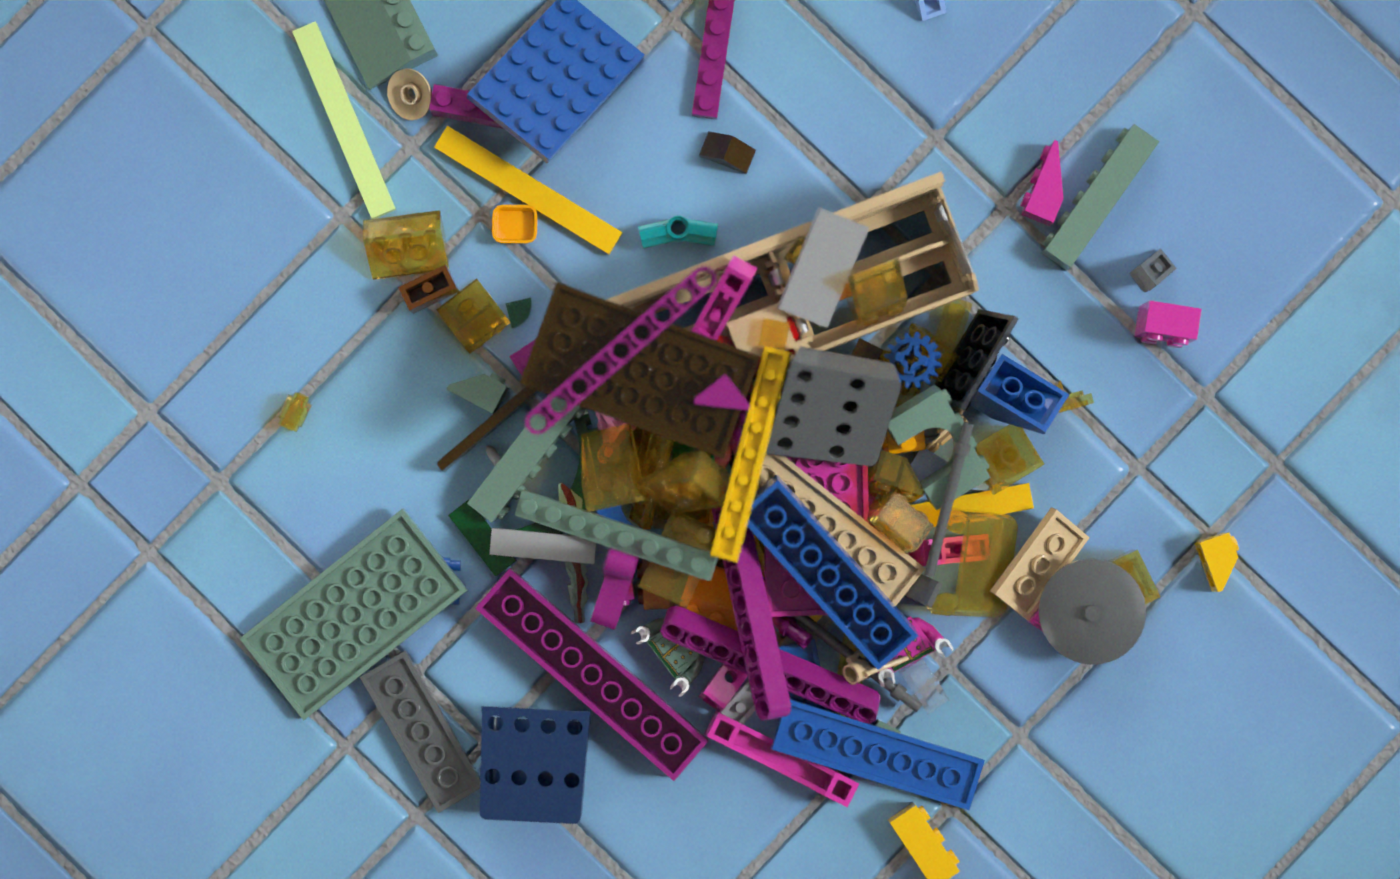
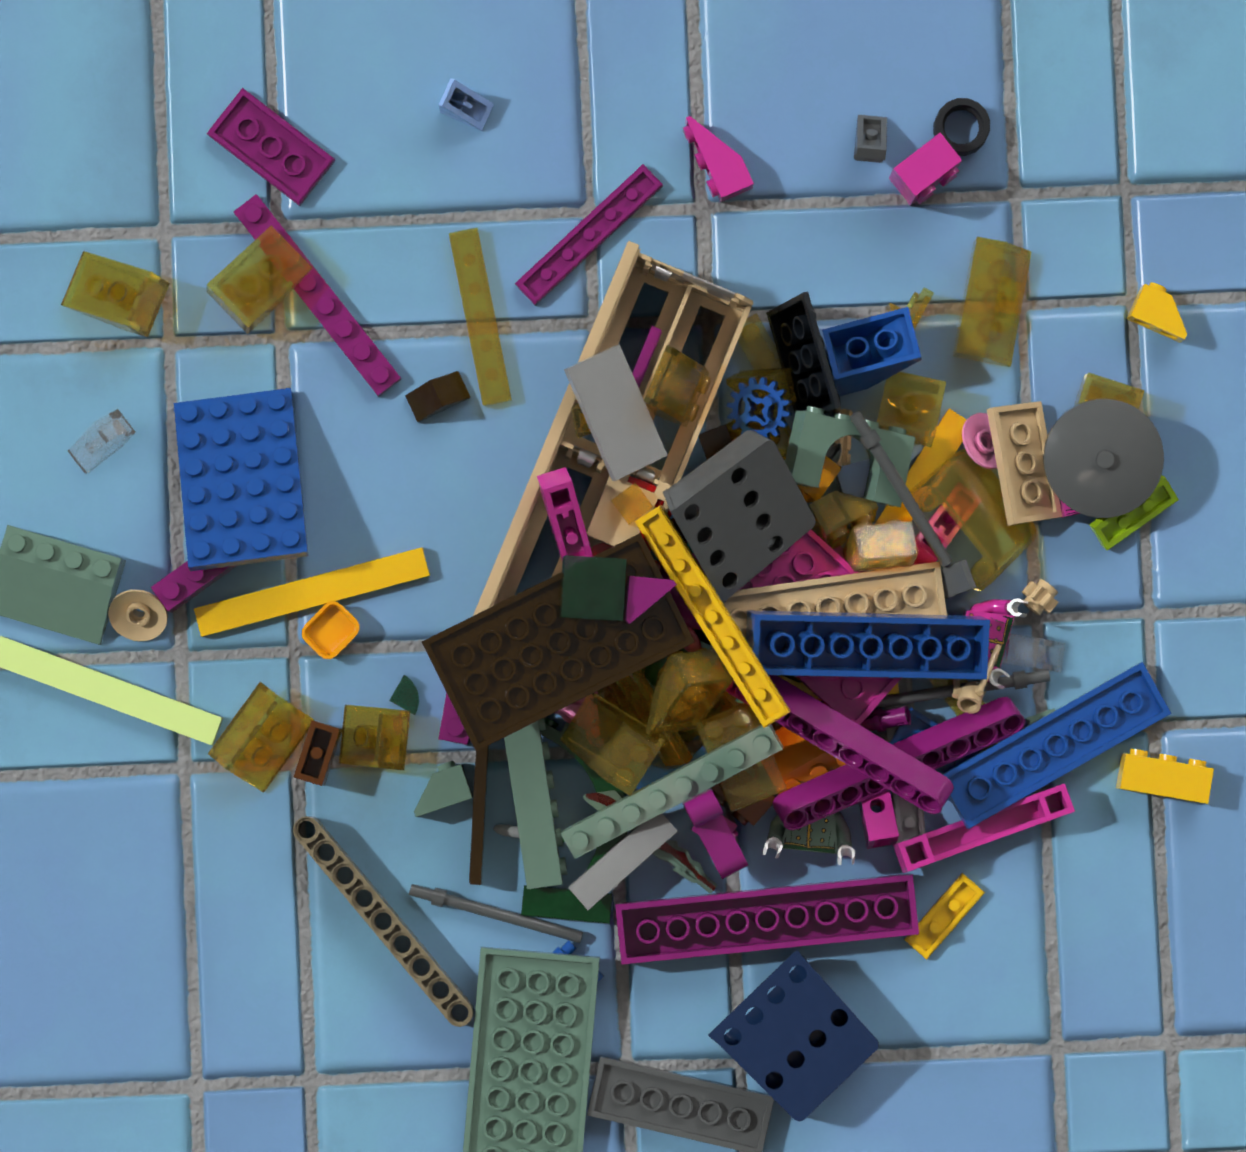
camera: 45 degrees left, 0 degrees up
(294, 411) = (313, 961): clear yellow brick -> none
(358, 418) = (397, 926): none -> dark tan beam
(411, 453) = (439, 898): none -> dark grey bar
(626, 337) = (532, 658): magenta beam -> none
(660, 232) = (453, 515): teal piece -> none
(695, 358) = (592, 588): none -> clear green brick
(702, 786) = (945, 915): none -> yellow tile
(803, 131) = (480, 317): none -> clear yellow tile
(878, 255) = (646, 354): none -> magenta tile
(921, 150) = (589, 234): none -> magenta tile
(963, 655) = (1040, 597): none -> tan gear
(1026, 521) = (978, 440): none -> bright pink dish
(1052, 662) = (1114, 529): none -> lime plate
(1100, 196) = (768, 124): sand green brick -> none
(1123, 446) = (992, 302): none -> clear yellow slope
(1236, 321) = (972, 107): none -> black tyre

